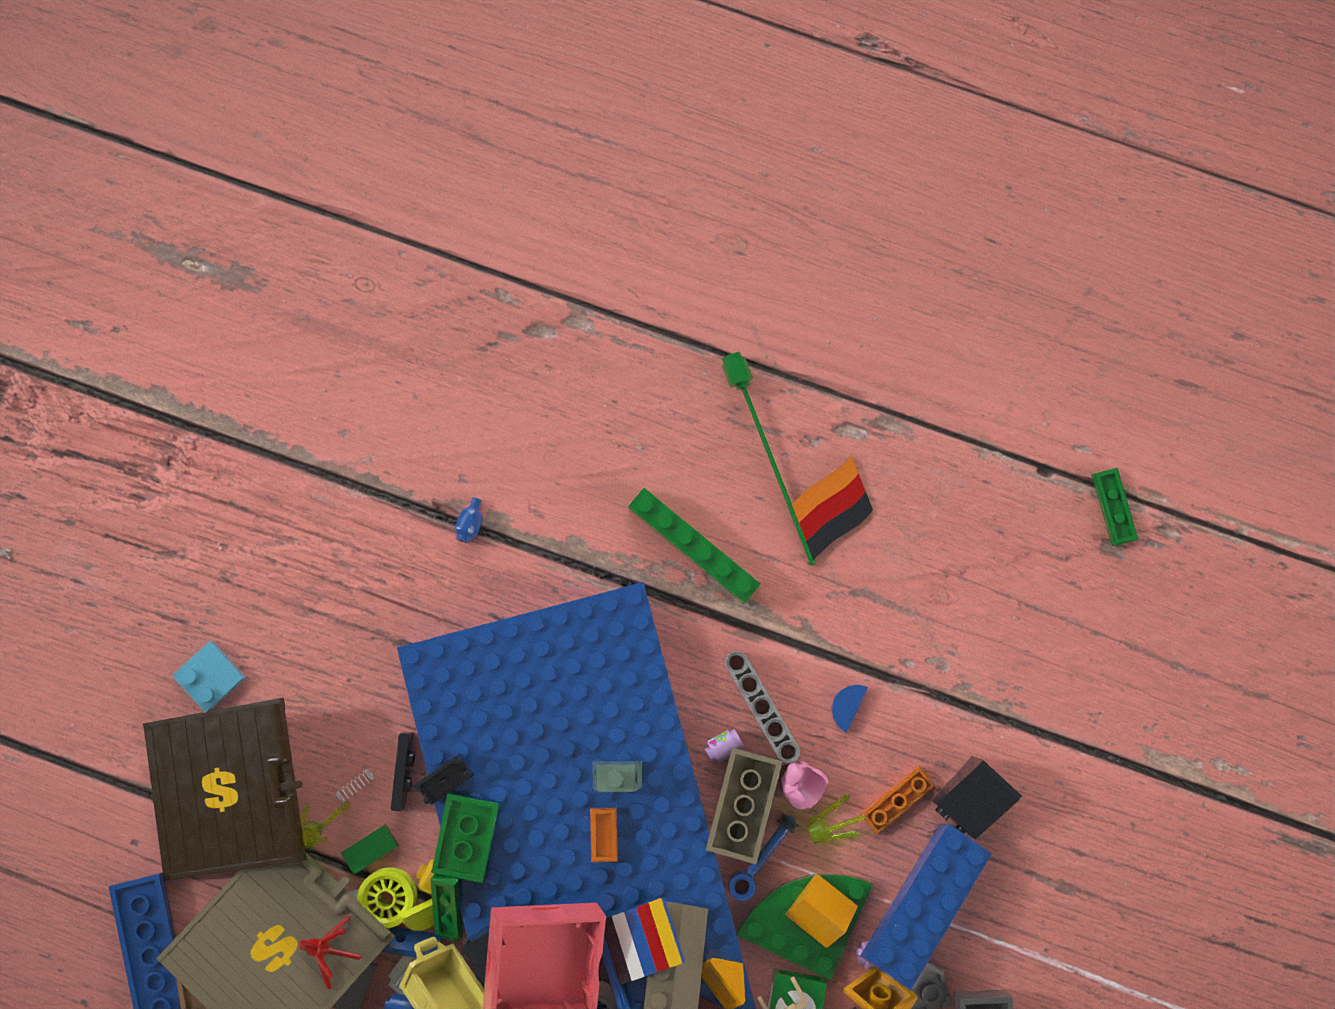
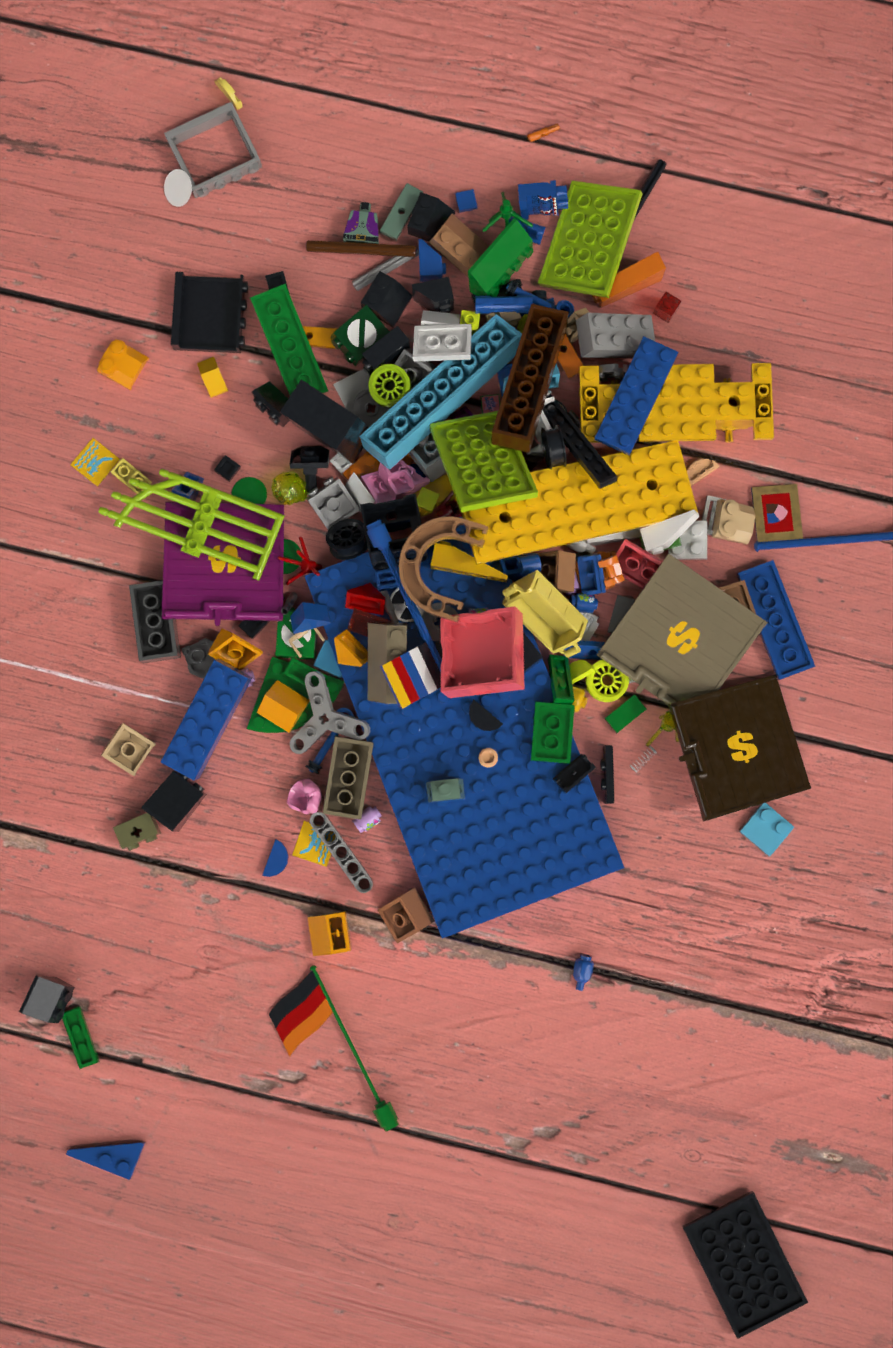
camera: 170 degrees right, 0 degrees up
(319, 152) = (745, 1264): none -> black plate
(320, 947) = (648, 641): red plant -> none
(555, 812) = (488, 757): none -> light nougat plate
(556, 866) = (482, 718): none -> black tile
(604, 834) = (450, 745): orange tile -> none
(686, 615) = (406, 915): none -> nougat slope
(694, 546) = (406, 971): green brick -> none
(757, 965) = (326, 660): none -> dark azure slope
(770, 907) = (322, 705): none -> light grey piece
(786, 603) = (329, 934): none -> light orange slope
(789, 951) = (298, 670): none -> green tile
(800, 717) = (311, 847): none -> yellow sticker
(821, 831) = (288, 764): clear neon green plant -> none
(910, 788) = (241, 784): orange tile -> none
(1032, 874) = (127, 749): none -> tan slope
(1040, 766) = (126, 831): none -> olive brick
(1076, 353) = (116, 1159): none -> blue wing
(1156, 559) = (47, 999): none -> slope

